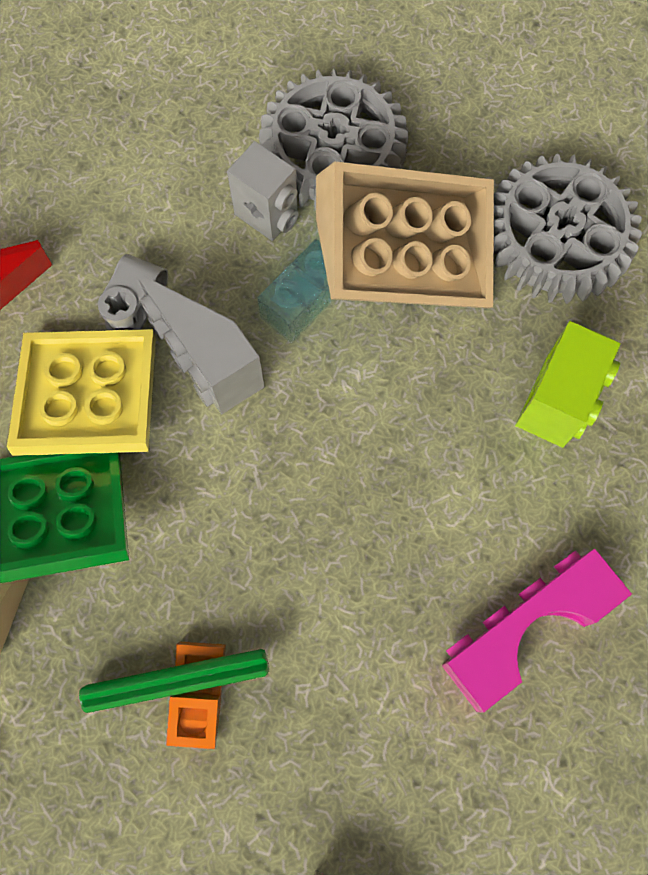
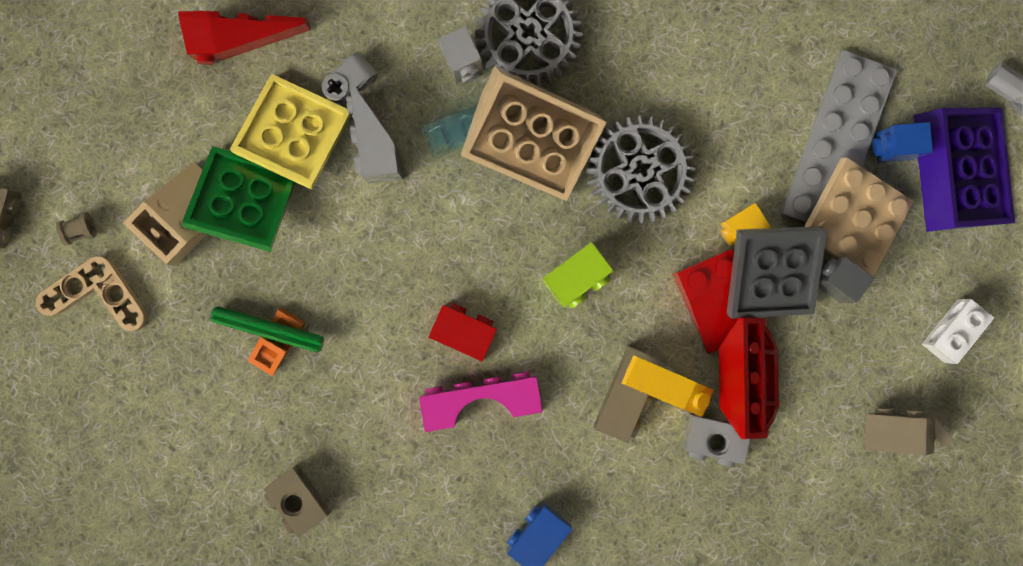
camera: 25 degrees right, 15 degrees up
(456, 541) = (462, 331): none -> red brick

